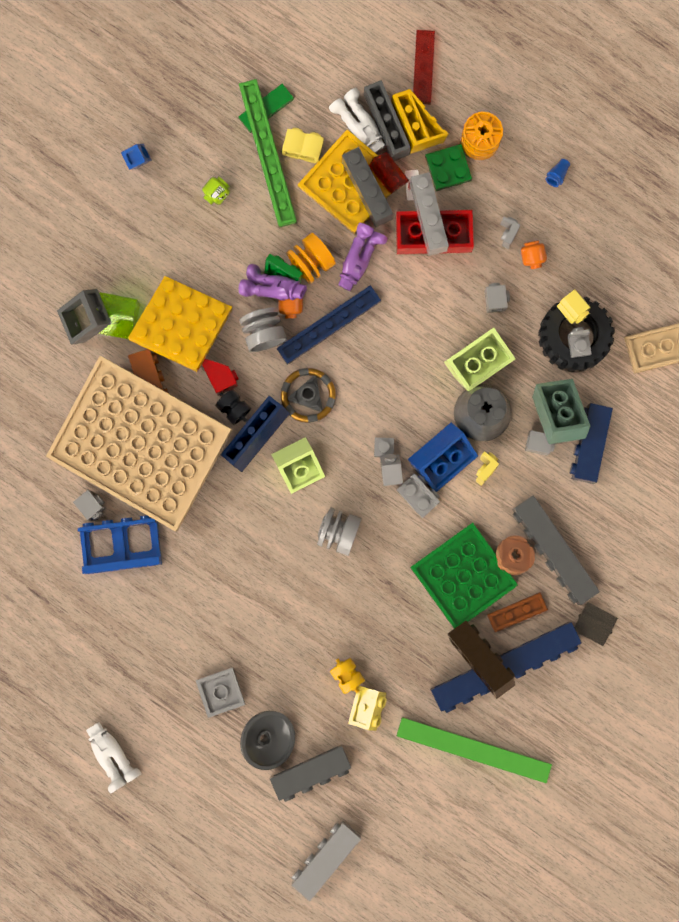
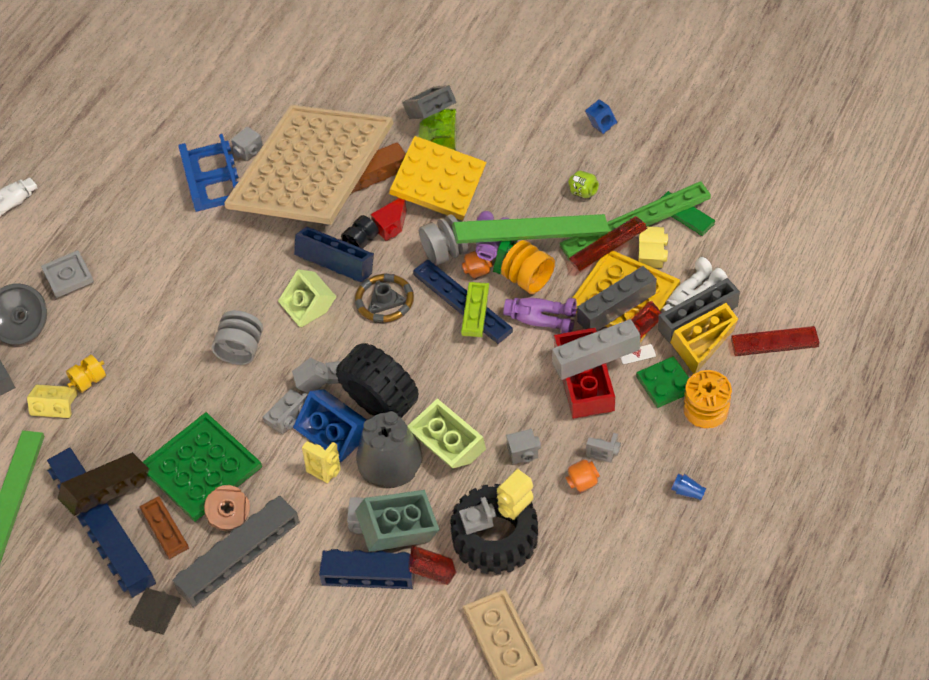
camera: 85 degrees right, 30 degrees down
(280, 246) = (530, 228): none -> bright green tile
(294, 182) = (607, 243): none -> clear red tile
(346, 313) = (475, 309): none -> lime tile
(427, 409) = (376, 381): none -> black tyre
(598, 390) = (431, 565): none -> clear red slope

